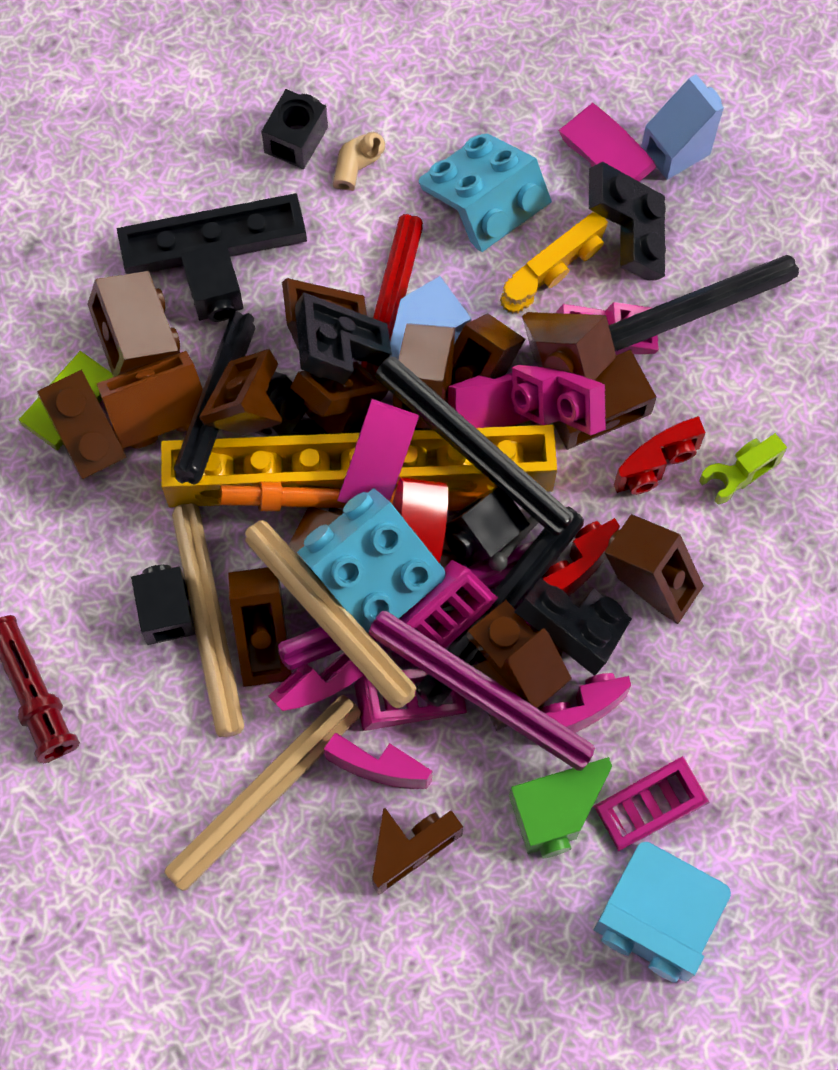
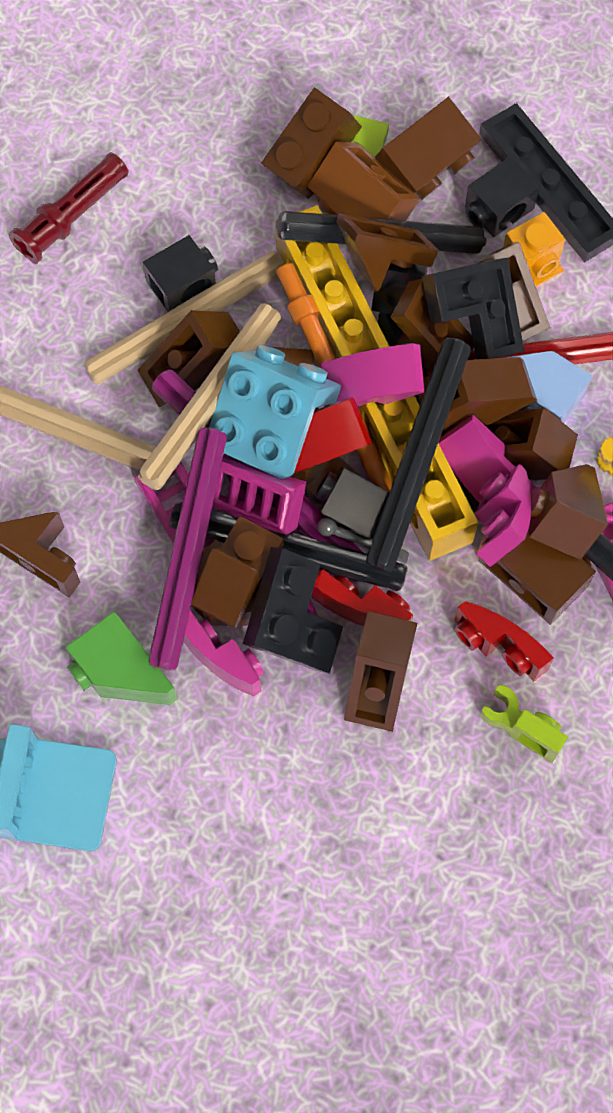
camera: 70 degrees right, 0 degrees up
(277, 264) = (541, 246): none -> light orange brick
(308, 687) = (149, 415): dark pink slope -> none
(391, 769) = (102, 506): dark pink slope -> none
(687, 779) = (188, 775): dark pink slope -> none

